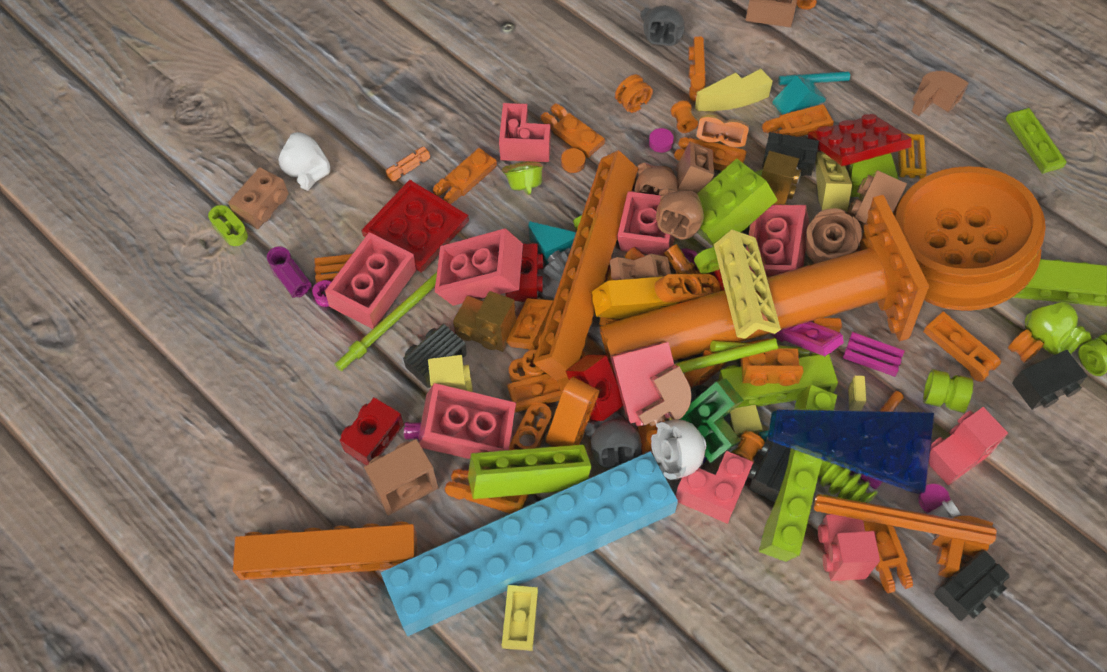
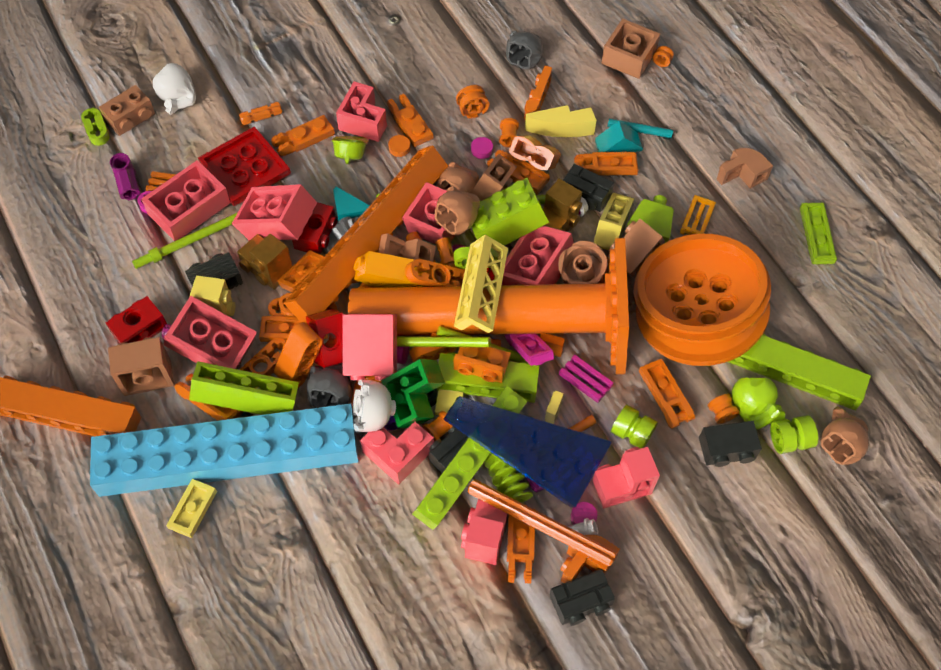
camera: 15 degrees right, 0 degrees up
(674, 397) = (382, 360): nougat brick -> none
(859, 139) = (650, 190): red plate -> none

